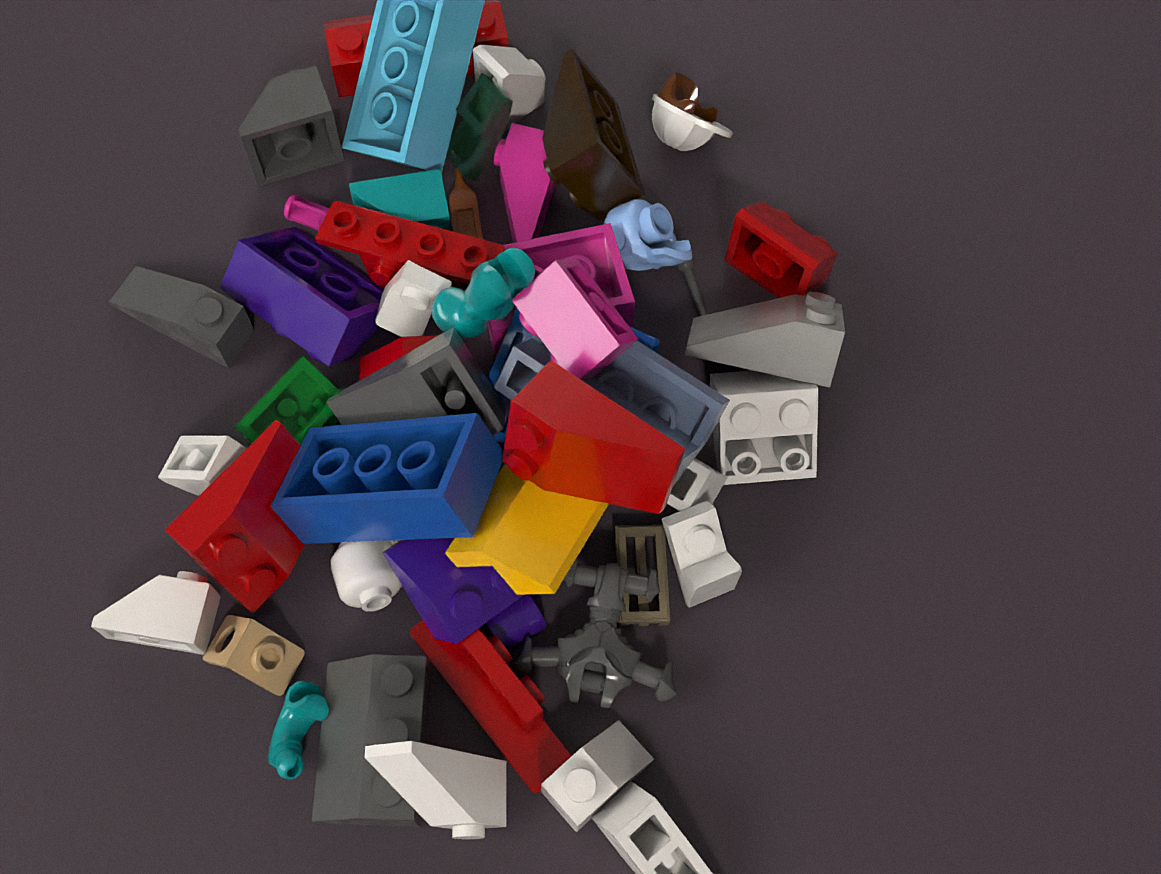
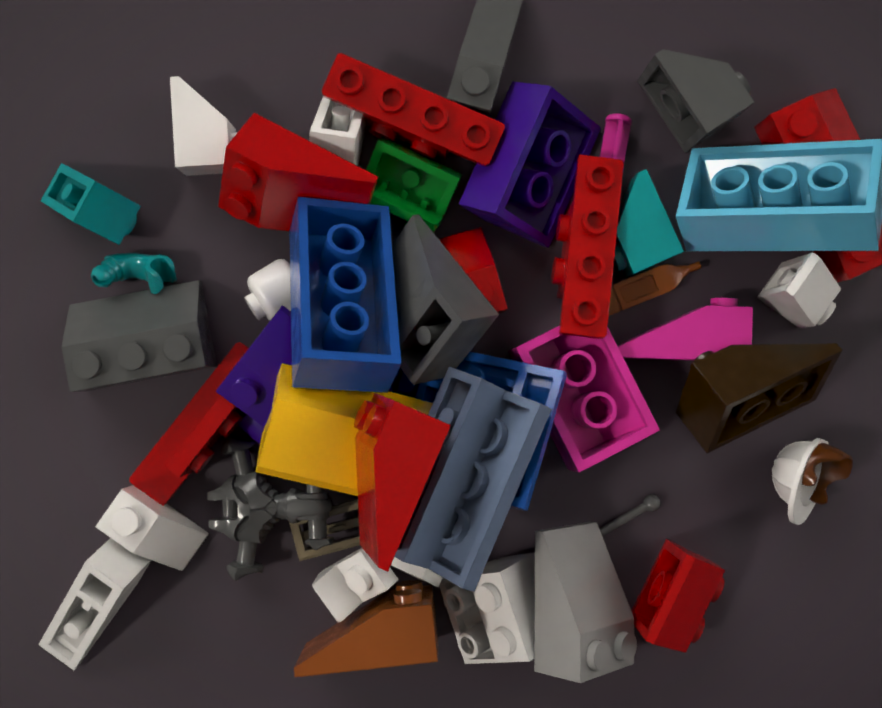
camera: 80 degrees right, 20 degrees up
(200, 762) = (91, 204): none -> teal slope
(220, 386) = (412, 113): none -> red bracket
(255, 653) = (189, 216): tan bracket -> none
(409, 300) = (529, 259): white slope -> none
(445, 785) = (106, 415): white slope -> none
(478, 135) = (740, 278): slope -> none
(486, 297) = (532, 351): teal piece -> none
(573, 319) = (511, 433): brick -> none
(646, 236) = (662, 464): light blue head -> none
(760, 534) = (384, 633): none -> dark orange slope

